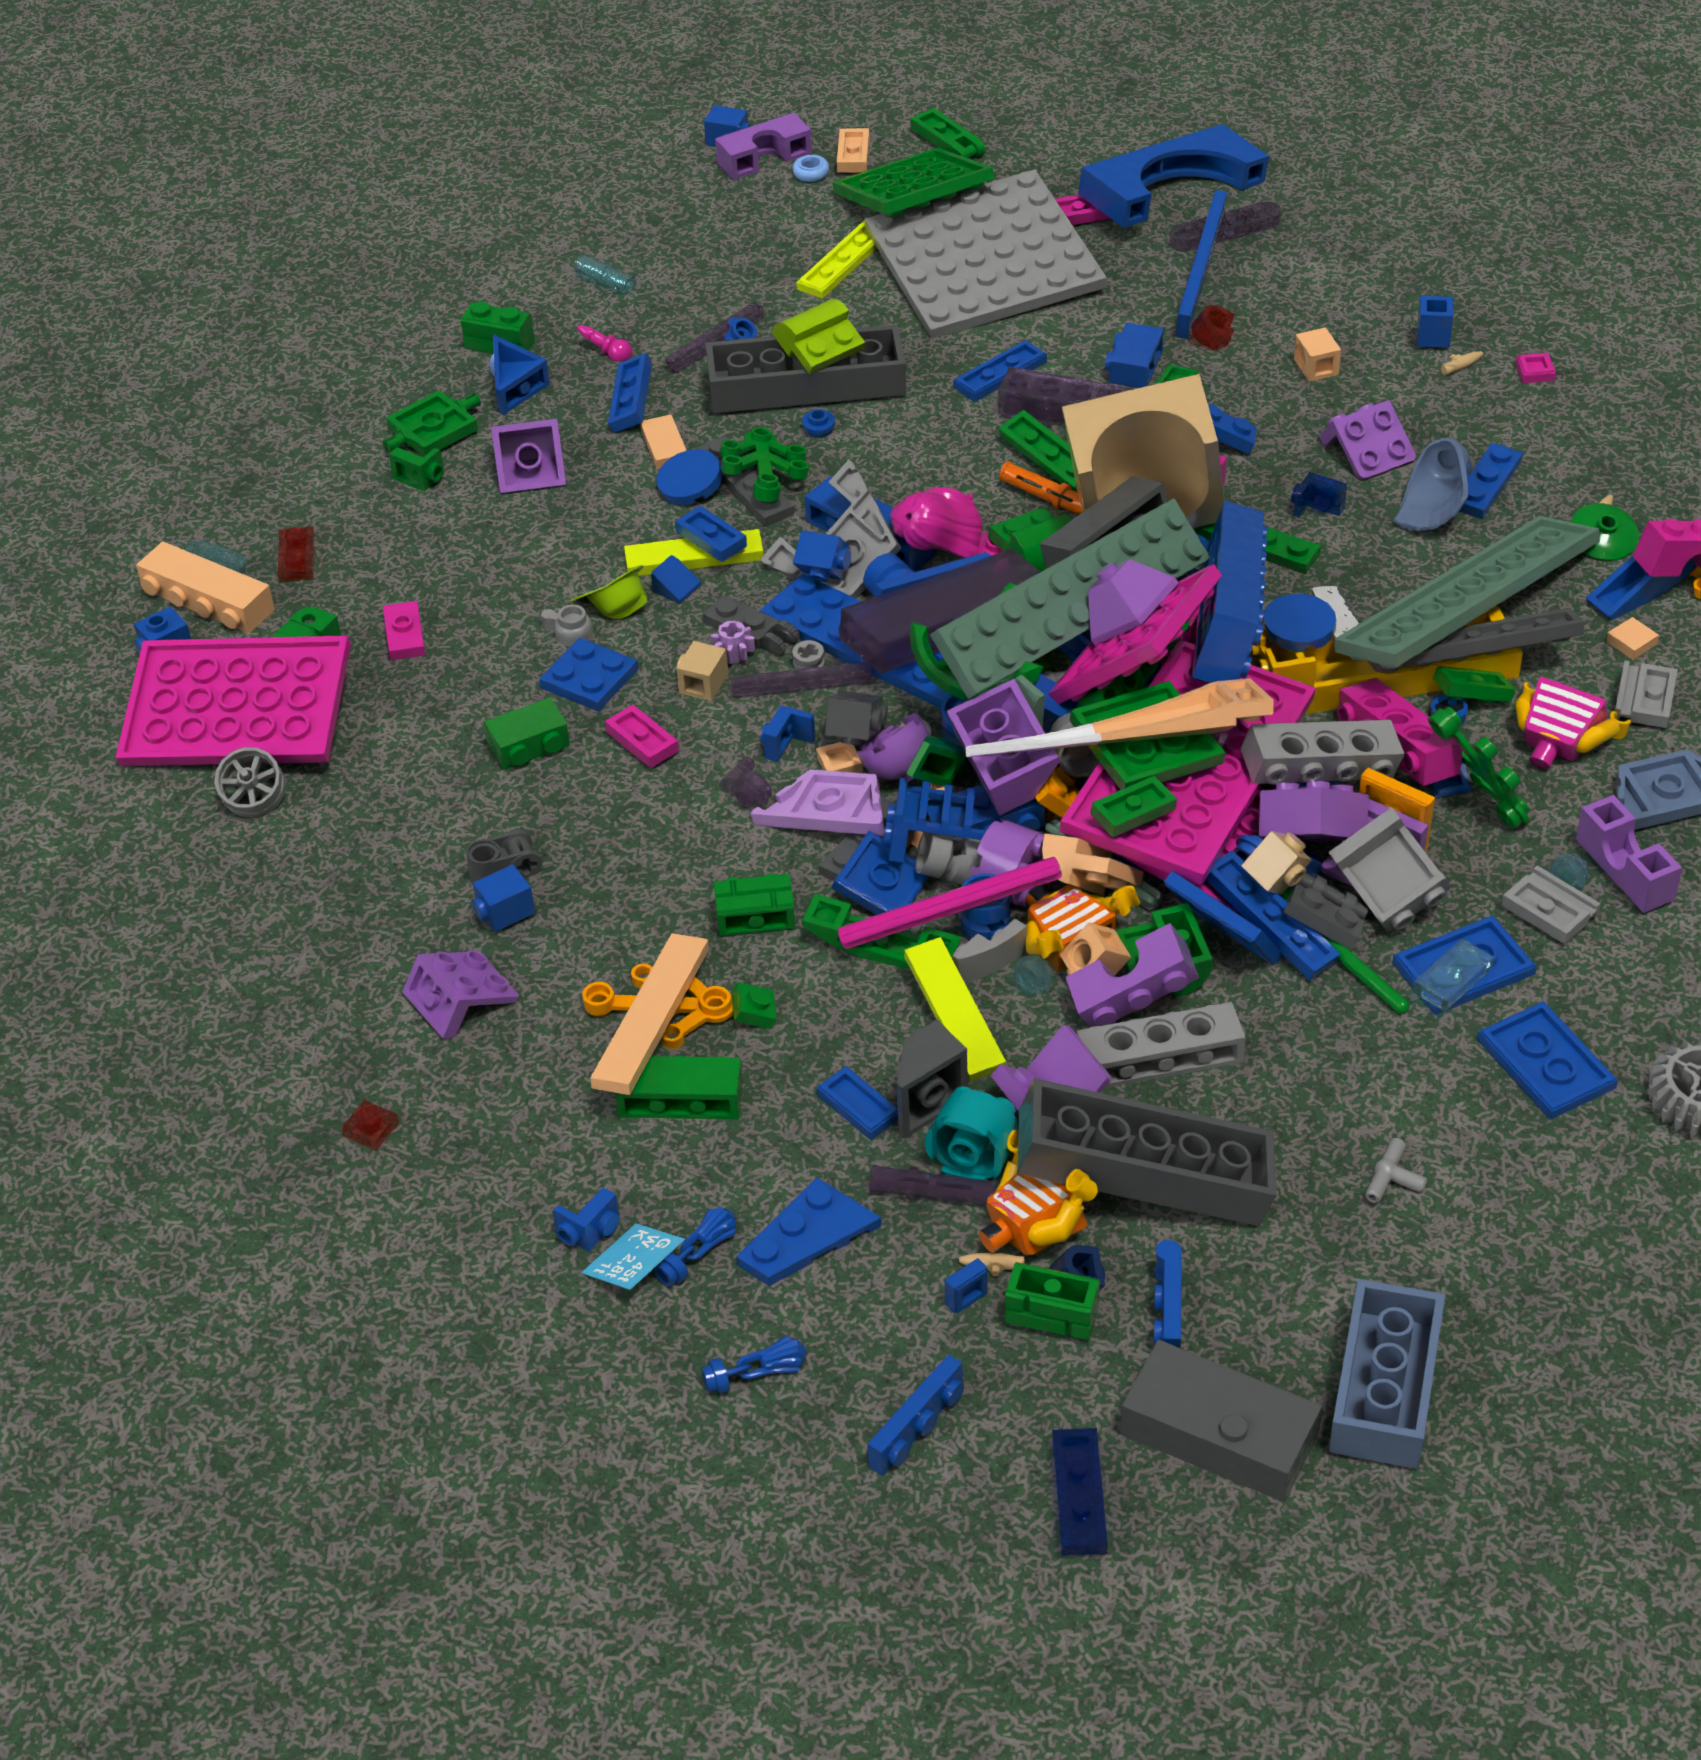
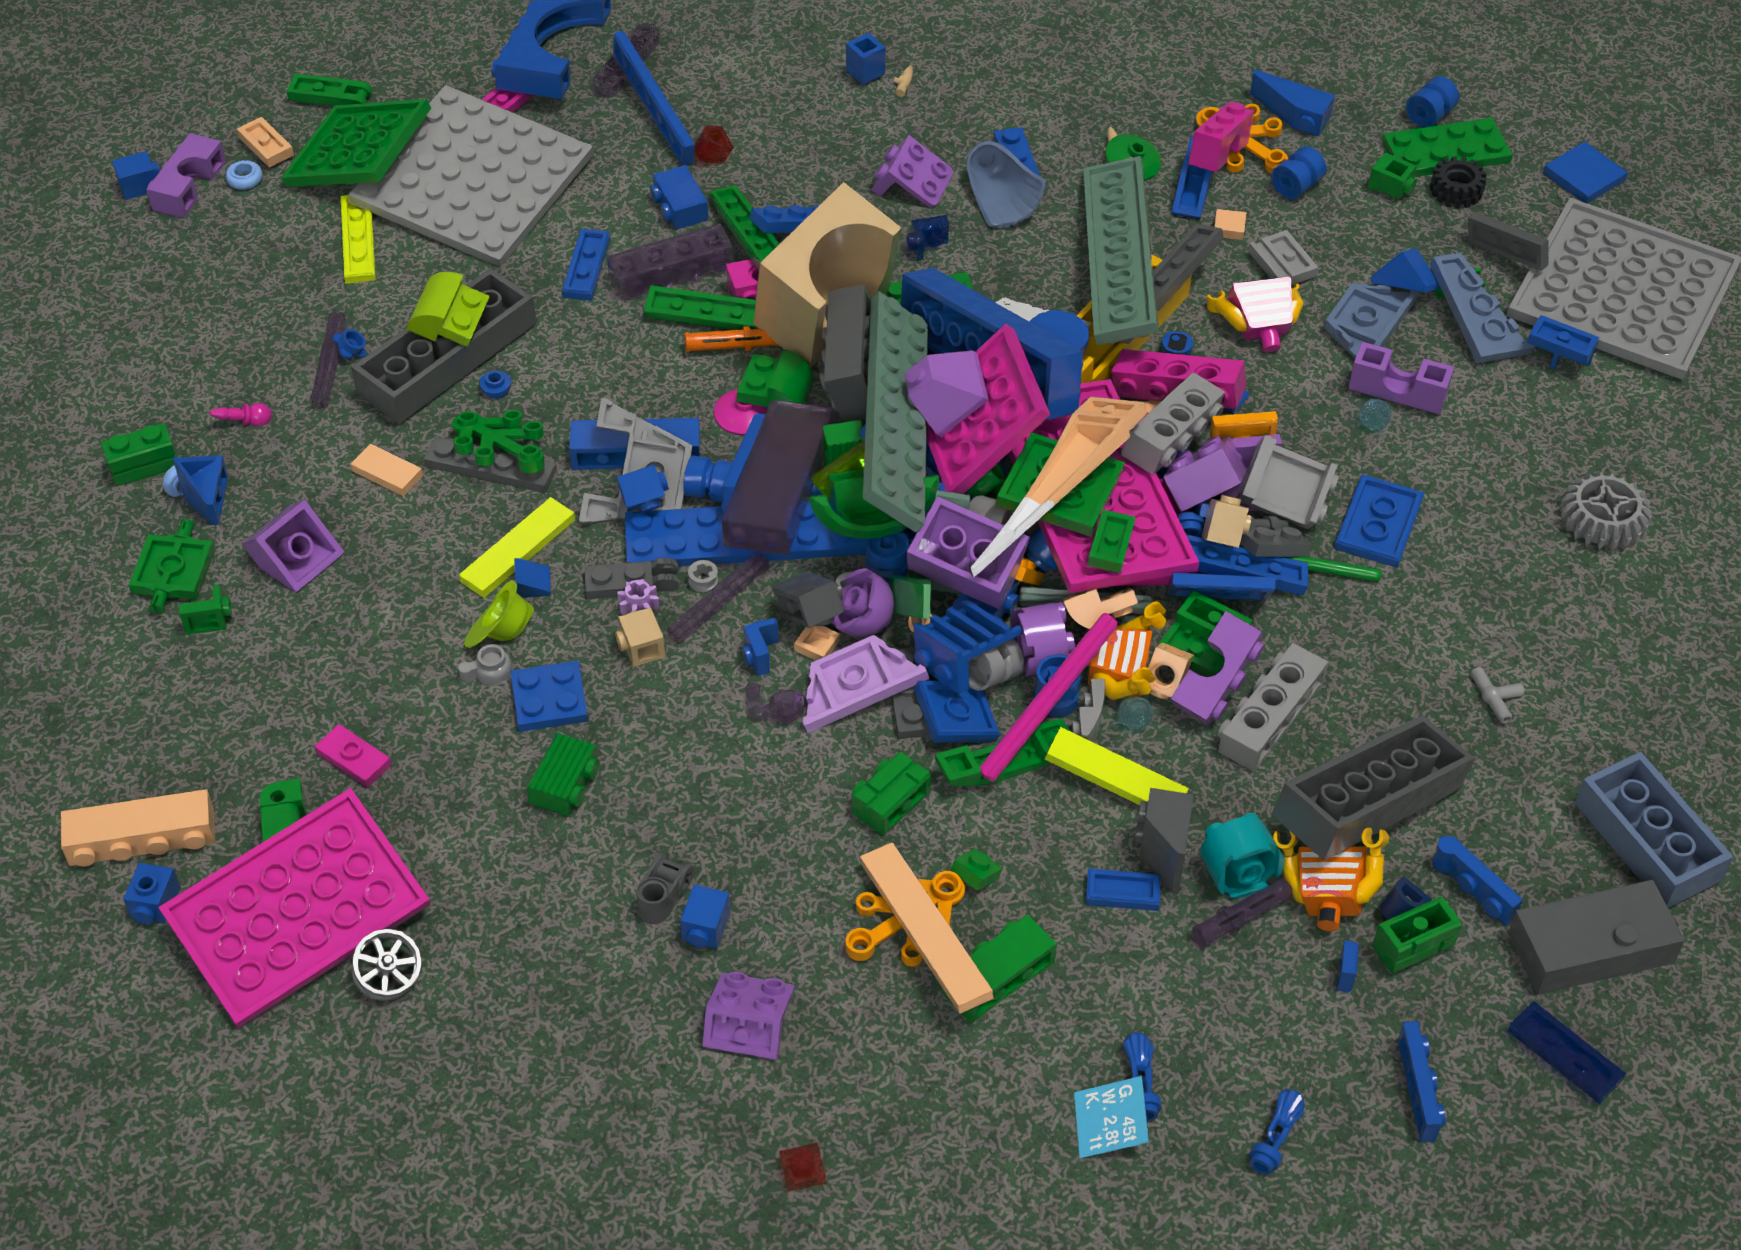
camera: 45 degrees left, 5 degrees up
(218, 555) = (116, 793): clear light blue plate -> none
(296, 554) = (180, 749): clear red plate -> none
(590, 1224) = (1059, 1109): blue bracket -> none
(604, 274) = (173, 355): clear light blue pin -> none
(630, 393) = (316, 444): blue plate -> none
(641, 736) = (652, 718): dark pink plate -> none
(689, 476) = (446, 486): blue tile -> none
(711, 533) = (526, 522): blue plate -> none
(804, 1230) = (1197, 1009): blue wing -> none
(939, 520) = (705, 401): dark pink piece -> none
(995, 1262) = (1336, 937): tan helmet -> none
(1061, 1061) = (1247, 776): medium lavender bracket -> none
(1317, 354) = (807, 126): light nougat brick -> none
(1453, 974) = (1390, 531): clear light blue plate -> none
(1477, 684) = (1181, 316): green plate -> none
(1478, 759) = (1270, 379): green plant -> none
(1535, 368) = (958, 59): dark pink tile -> none
(1547, 1060) = (1495, 553): blue tile -> none
(1550, 904) = (1387, 443): light grey plate -> none

